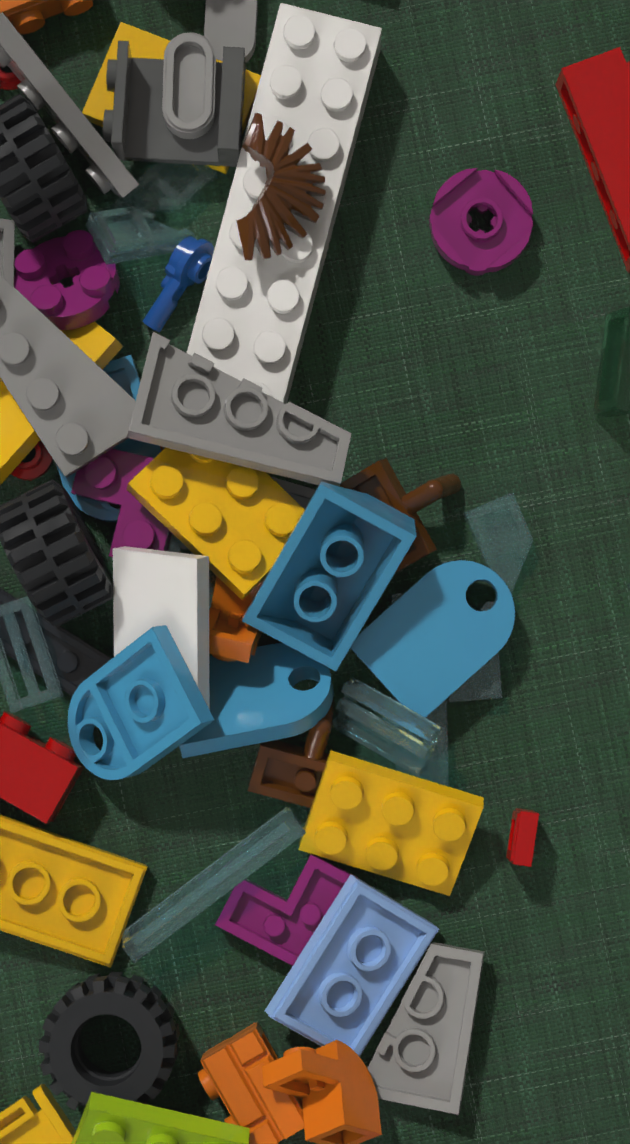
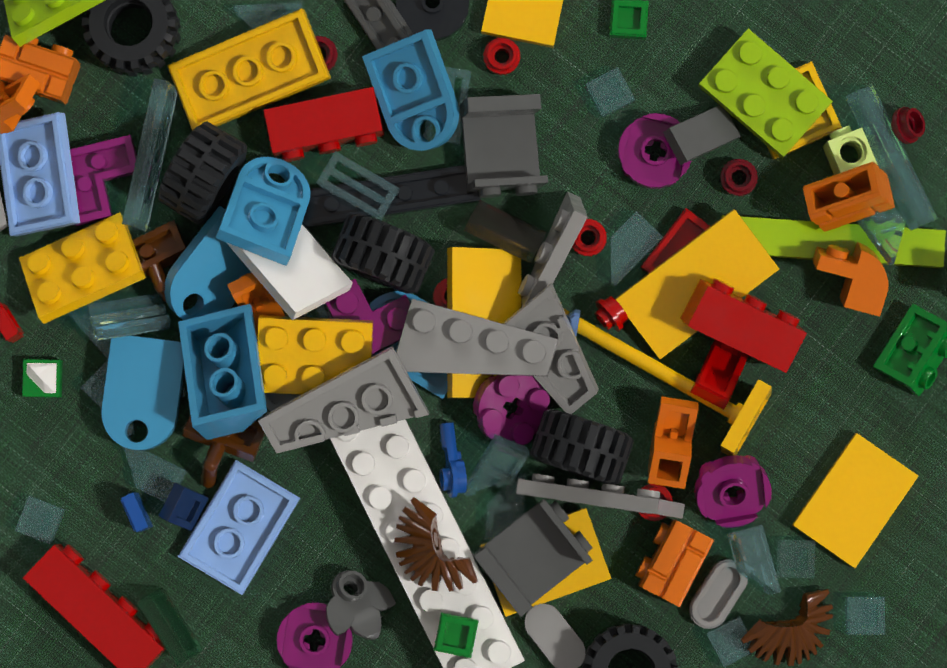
camera: 135 degrees right, 0 degrees up
(170, 810) = (202, 172): none -> black tyre
(189, 85) = (537, 573): light grey tile -> none
(327, 83) = (456, 635): none -> green tile
(406, 210) = (359, 610): none -> dark grey plate
(459, 406) = (239, 527): none -> light blue tile
(500, 475) = (183, 507): none -> dark blue plate
(534, 743) = (42, 378): none -> tile
(555, 511) = (136, 512): none -> blue tile

